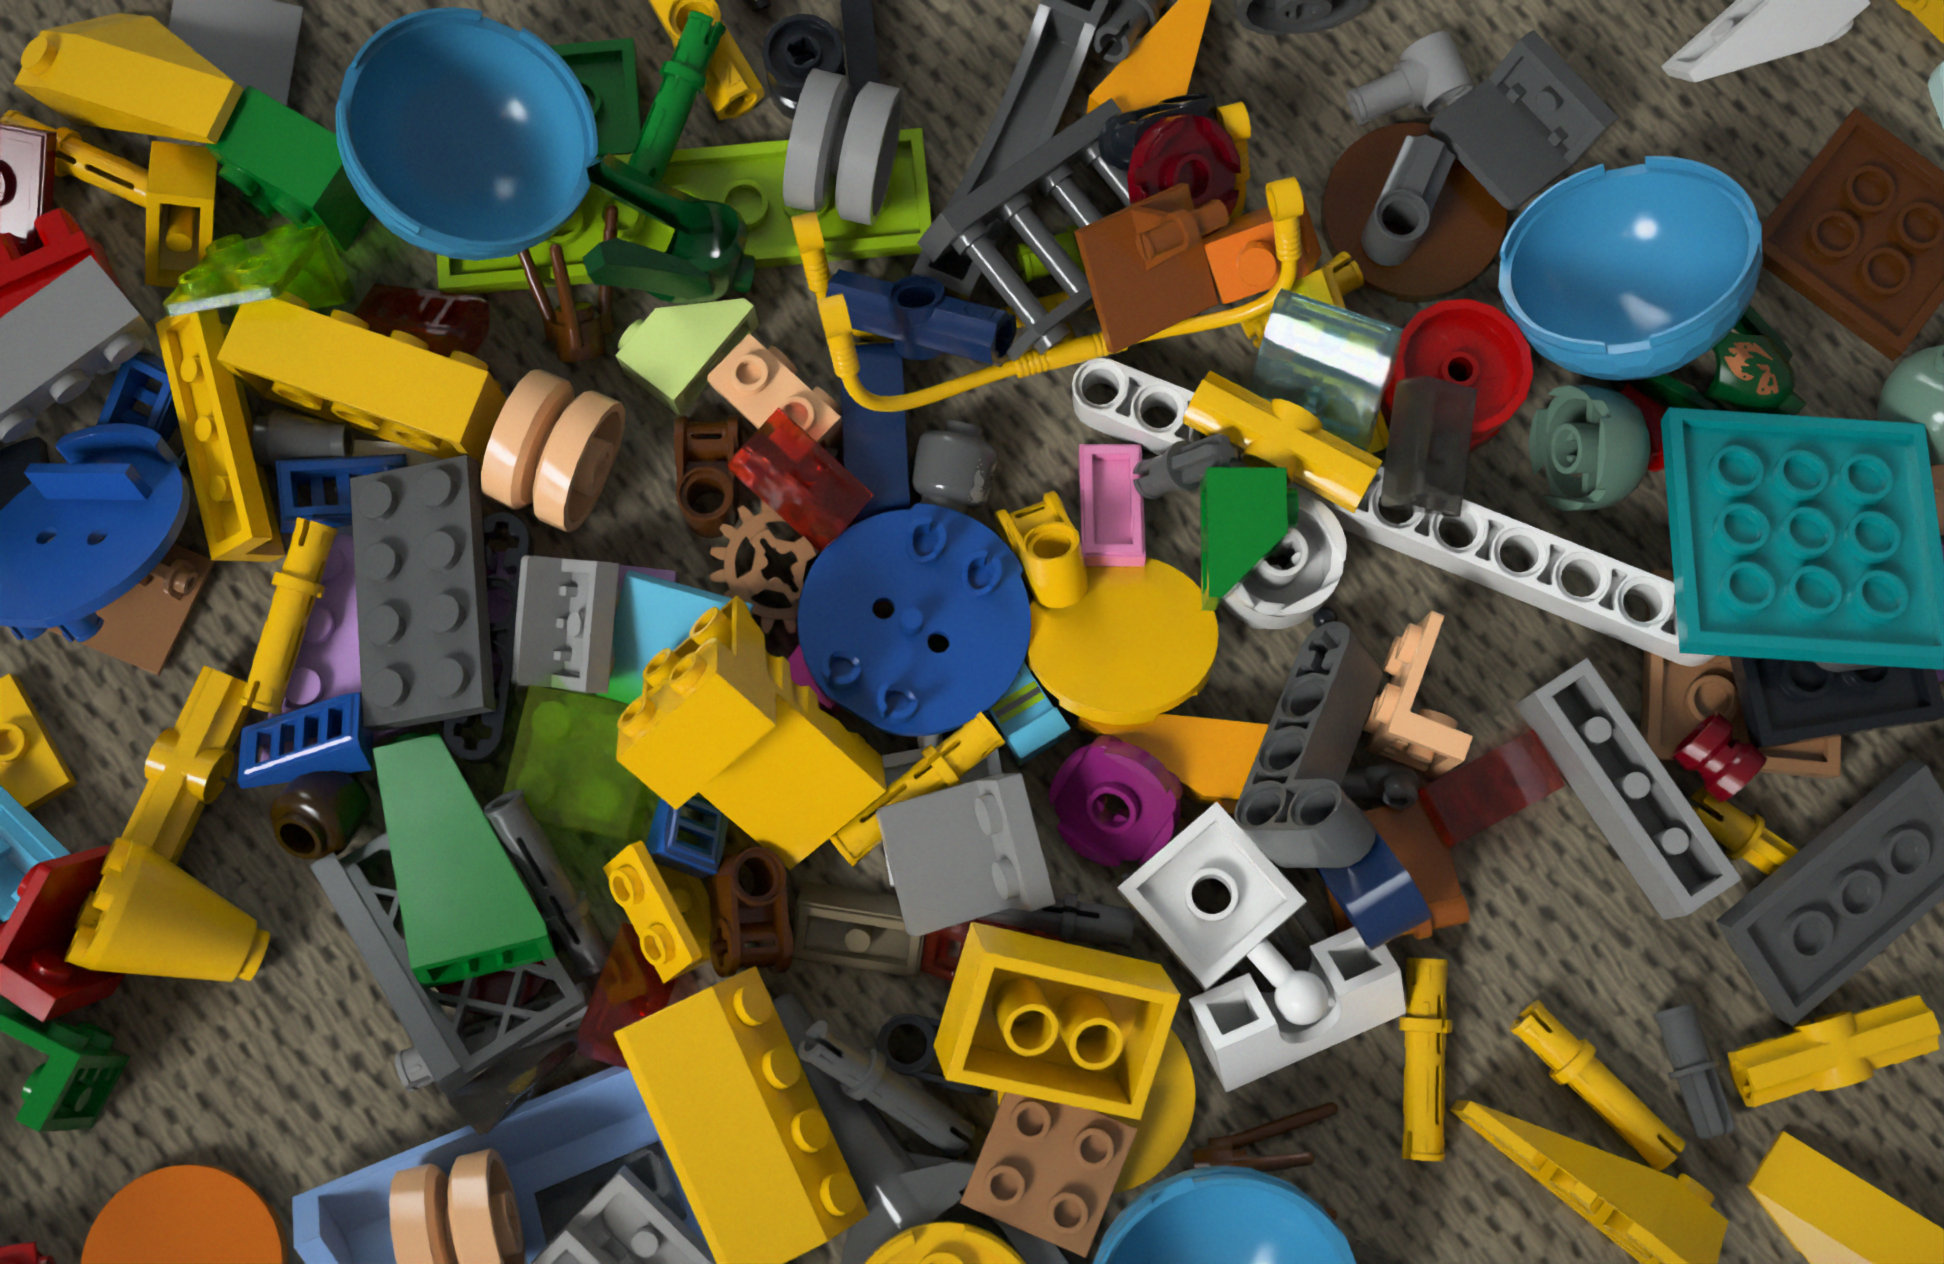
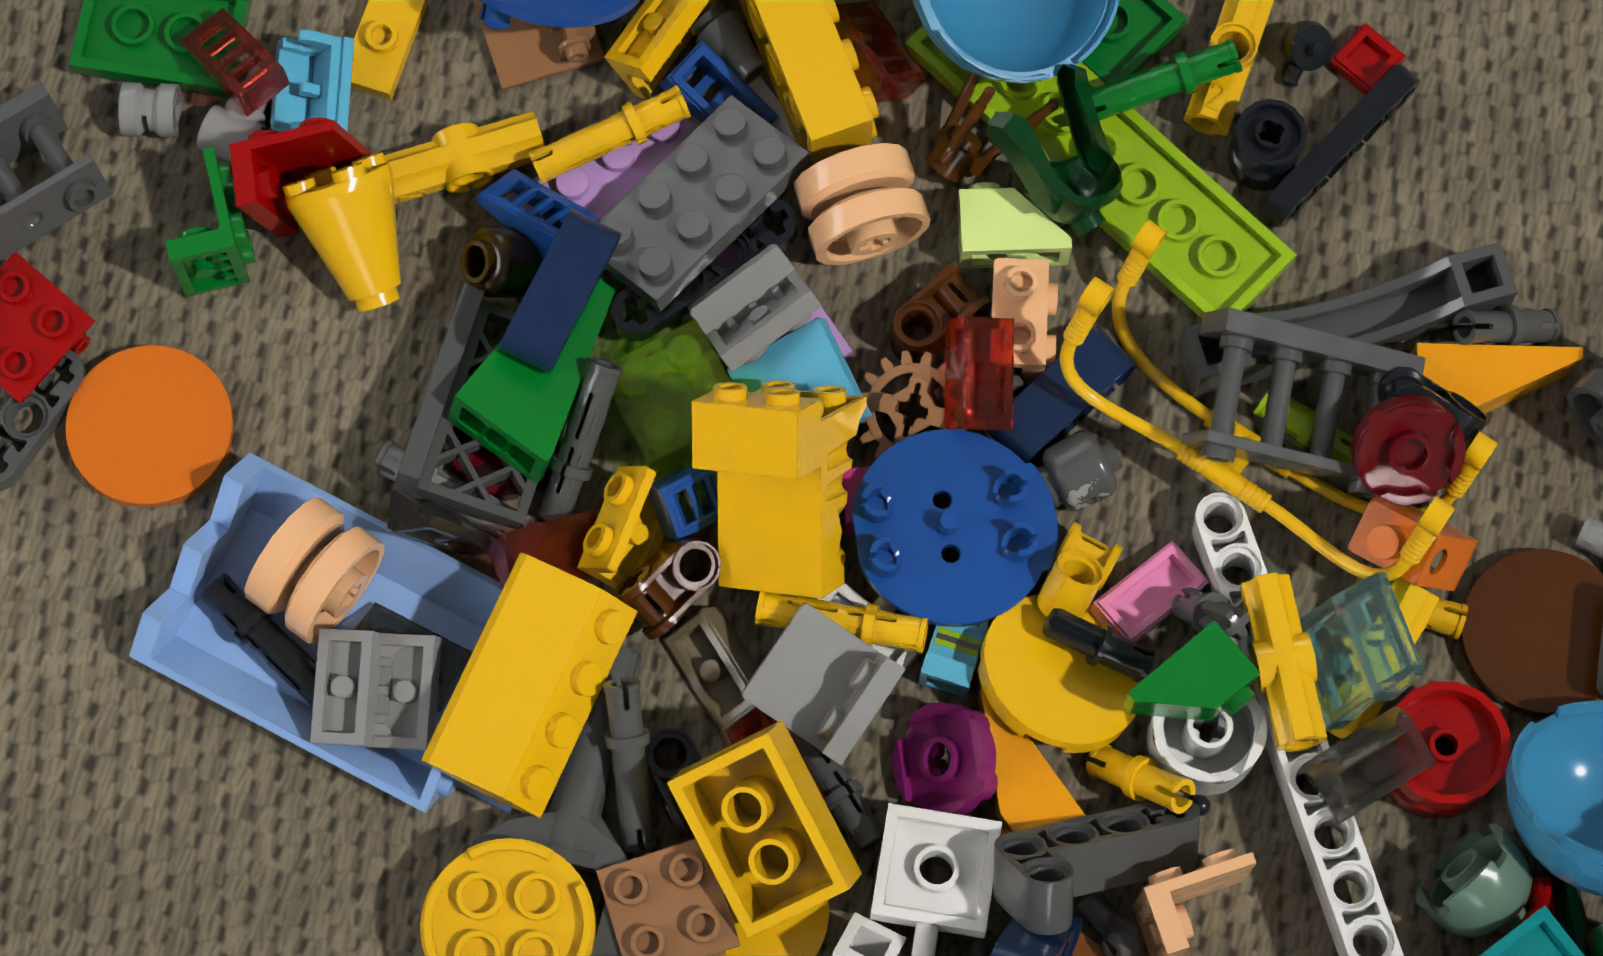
camera: 50 degrees right, 5 degrees down
(397, 787) = (560, 291): none -> dark blue beam
(842, 146) = (1226, 212): light grey wheel -> none
(924, 318) = (1158, 359): dark blue piece -> none
(1128, 583) = (1099, 644): none -> black axle
(1150, 264) = (1321, 474): dark orange plate -> none
(1274, 648) = (1141, 778): none -> yellow pin
(1407, 199) = (1543, 615): dark grey piece -> none

